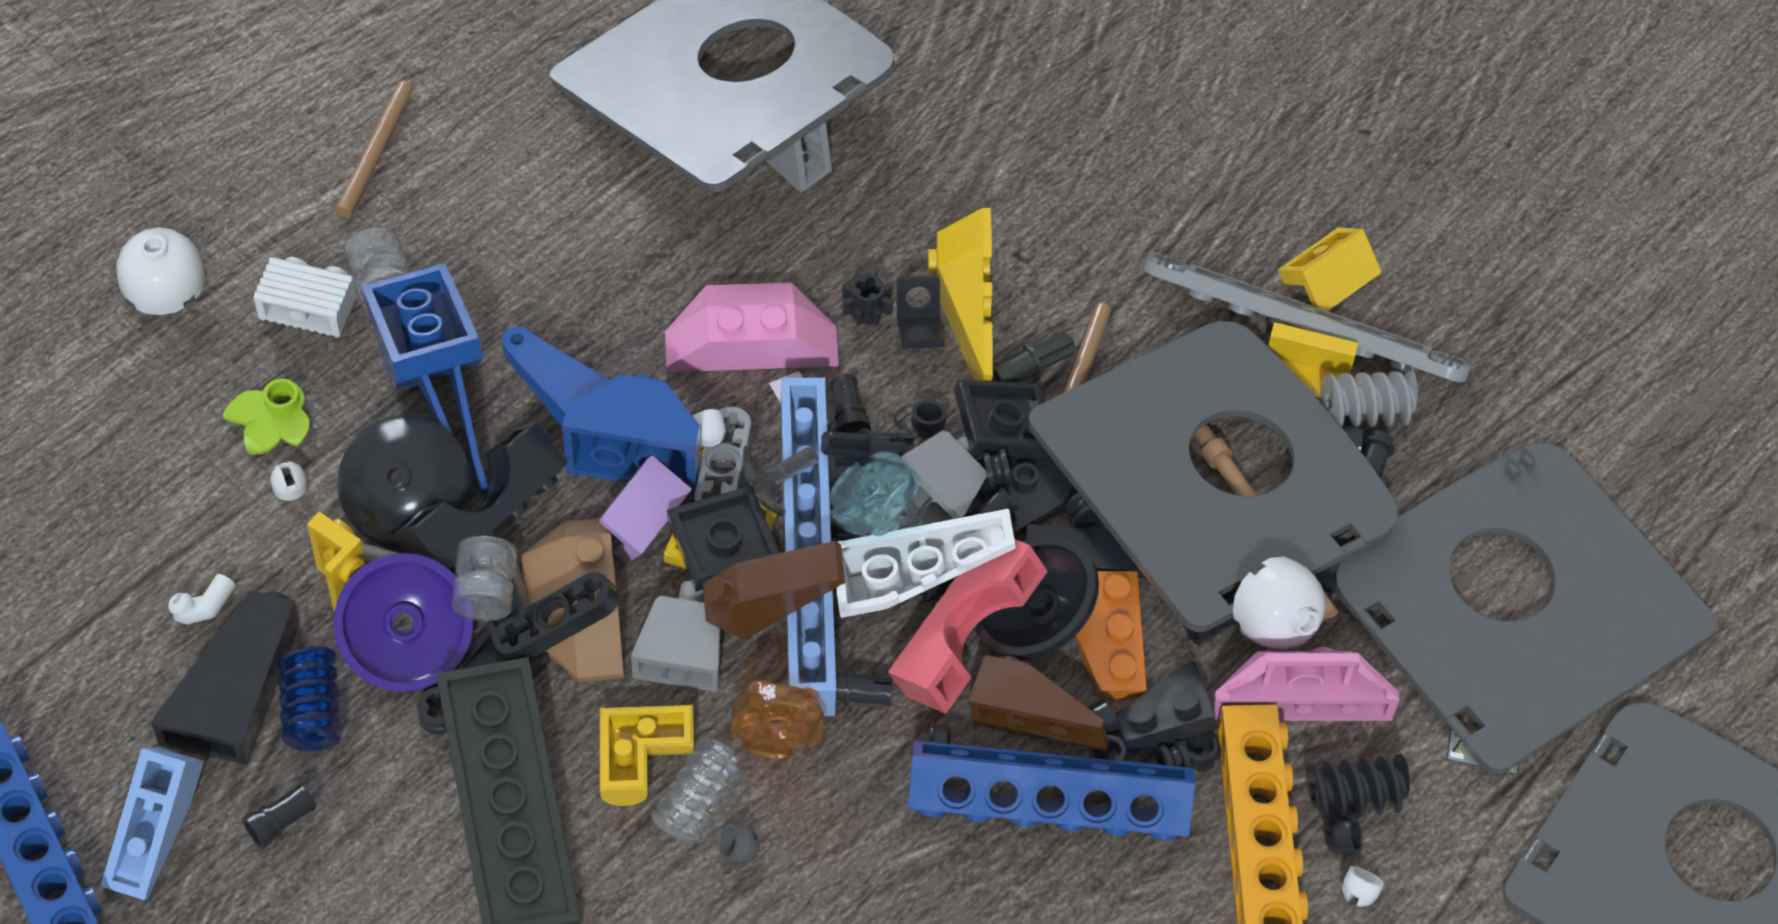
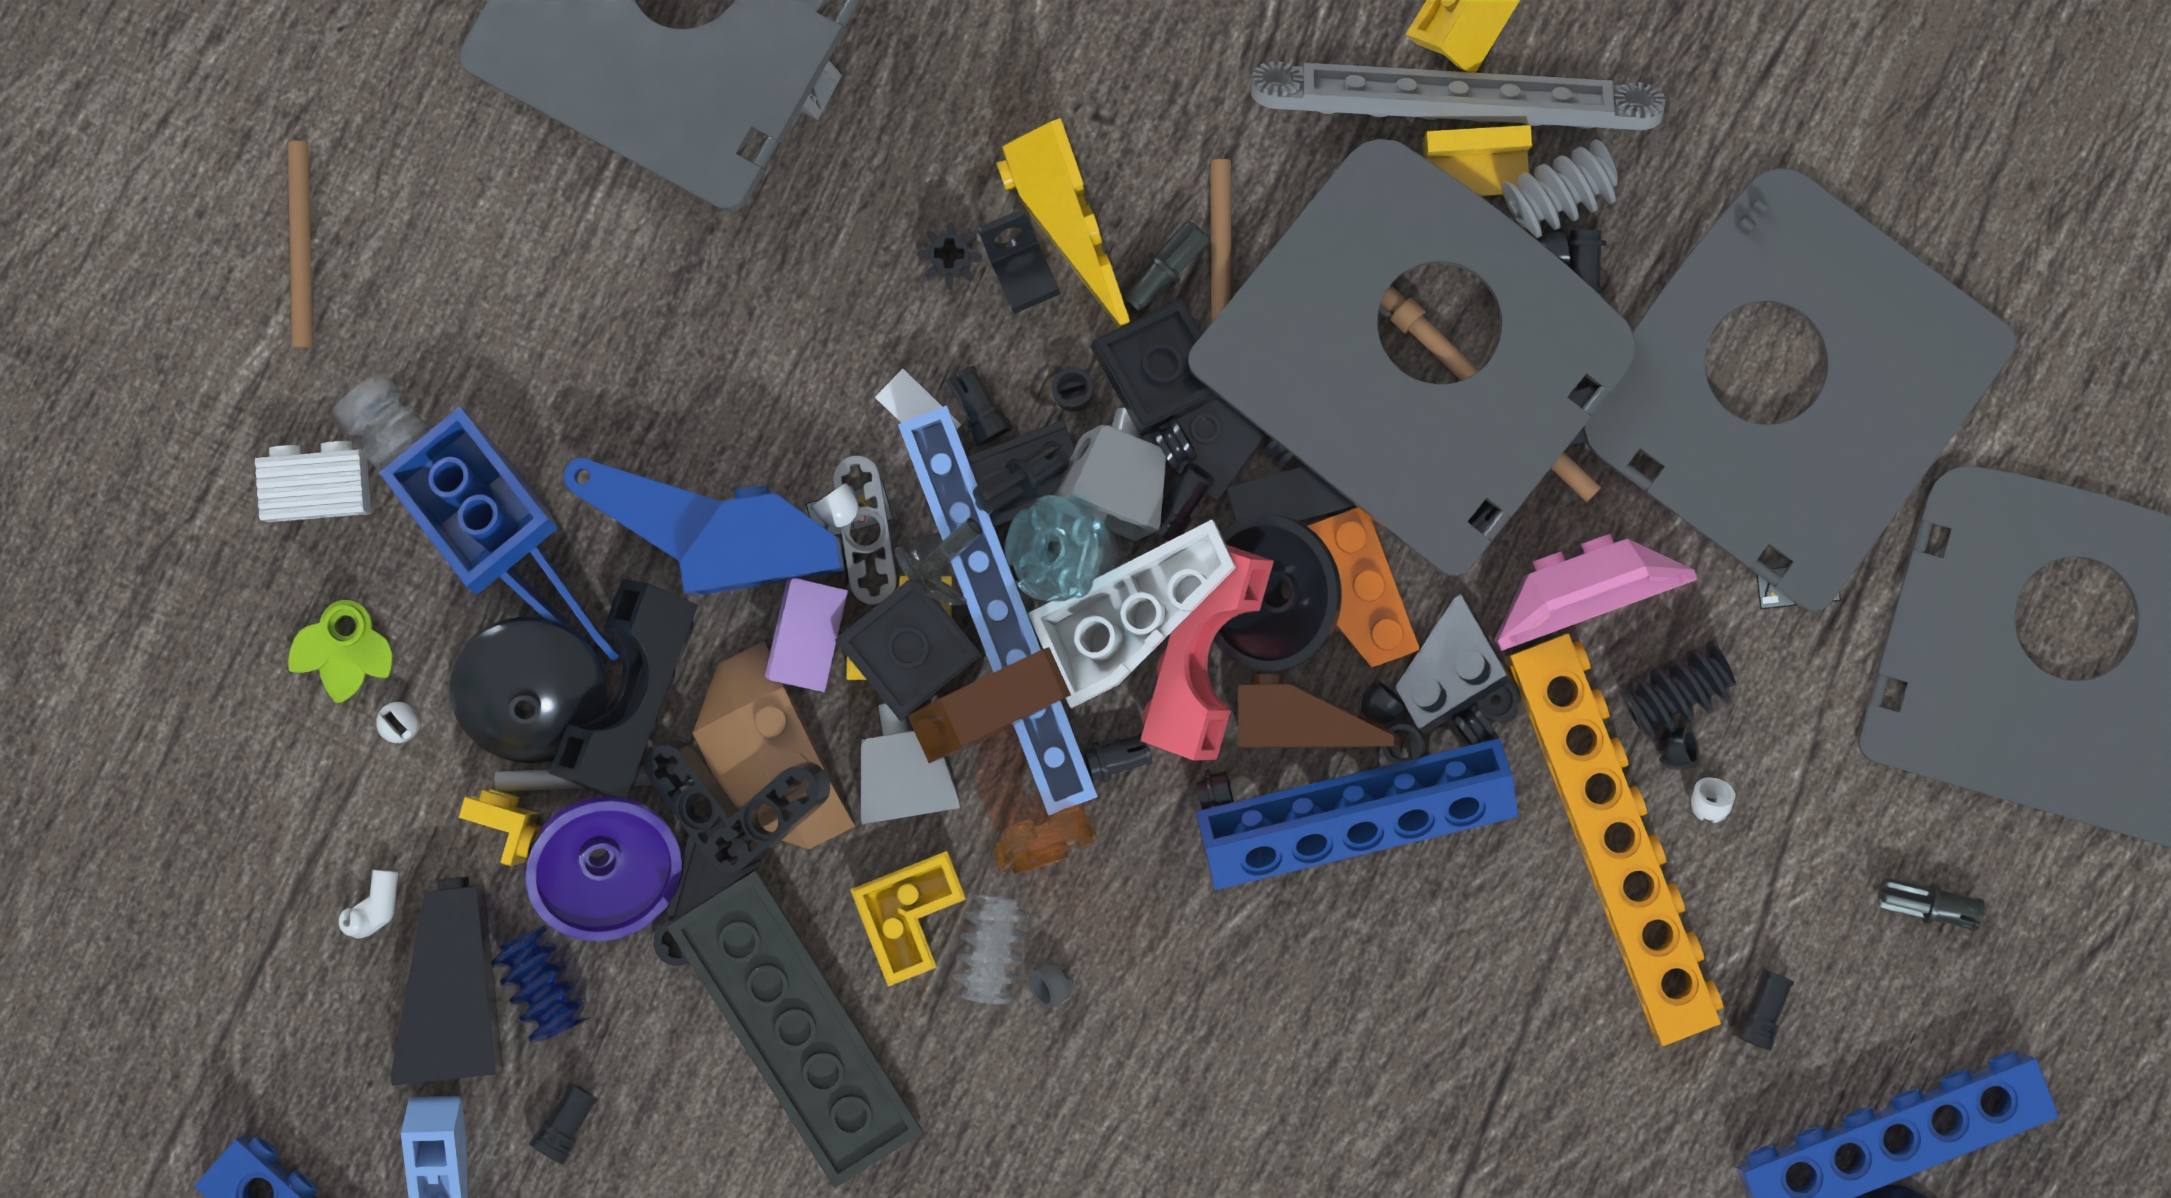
camera: 15 degrees left, 30 degrees up
(159, 271) = (133, 508): white cylinder -> none
(484, 578) = (677, 825): clear wheel -> none
(750, 330) = (831, 340): bright pink wedge -> none
(1280, 605) = (1544, 517): white cylinder -> none

